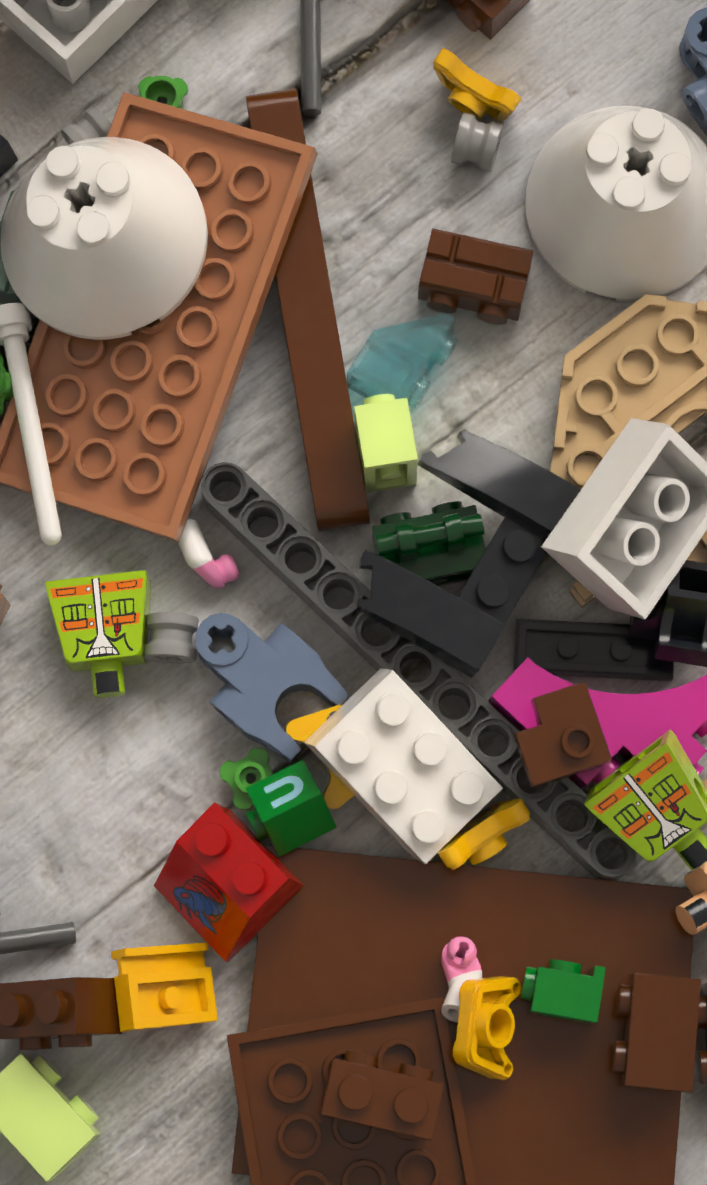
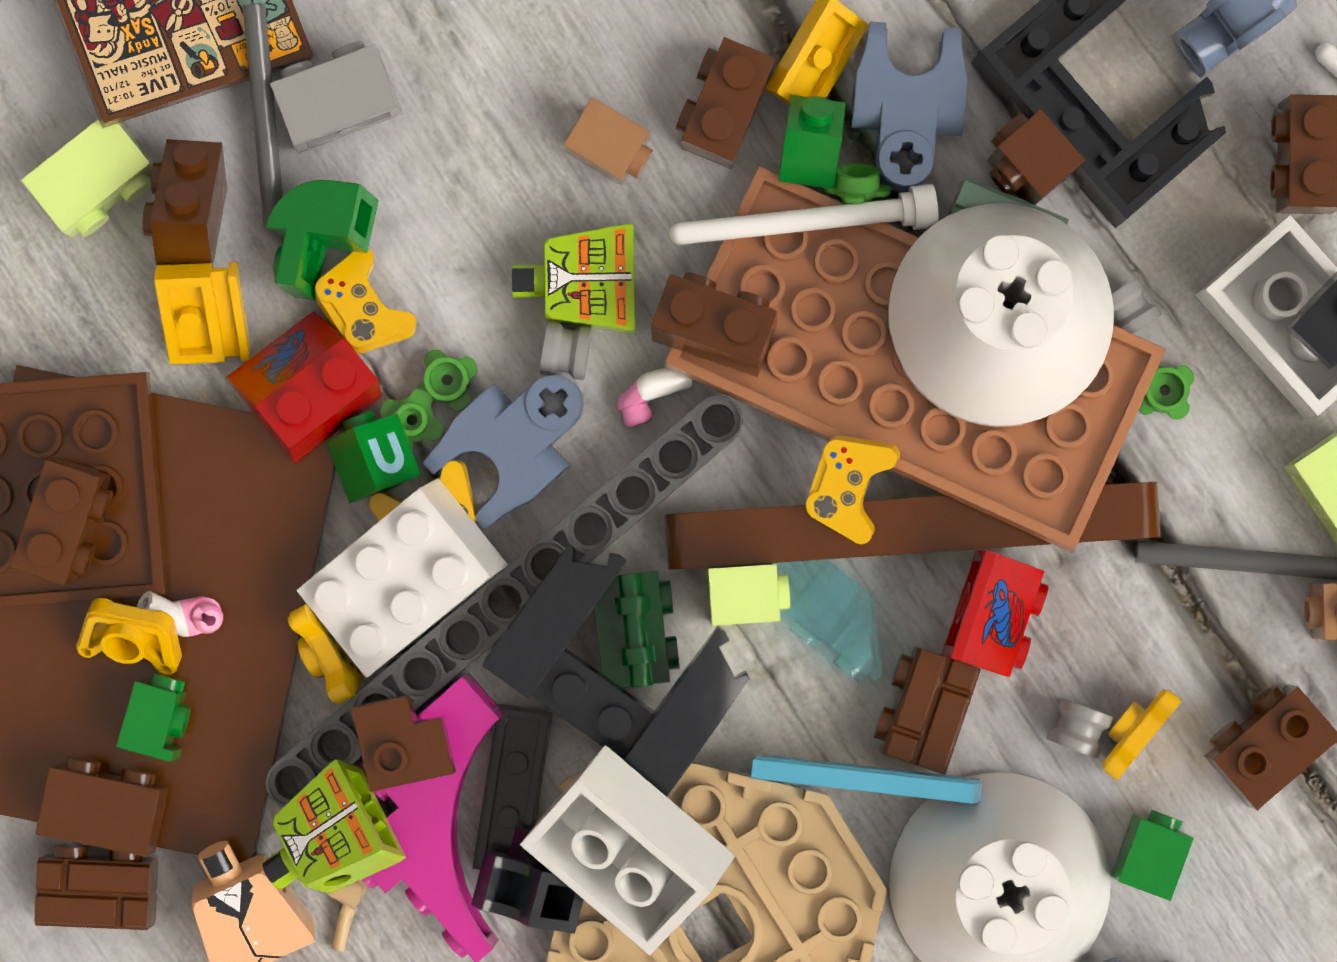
camera: 95 degrees right, 10 degrees up
(62, 883) = (318, 218): none -> green brick
(133, 489) = (714, 323): none -> reddish brown brick
(145, 842) = (356, 309): none -> yellow piece
(198, 739) = (461, 372): none -> bright green plate
(272, 361) = (842, 483): none -> yellow piece
(378, 225) = (995, 613): none -> red slope
(545, 317) = (867, 779): none -> medium azure tile
(584, 68) = (1153, 854): none -> green brick

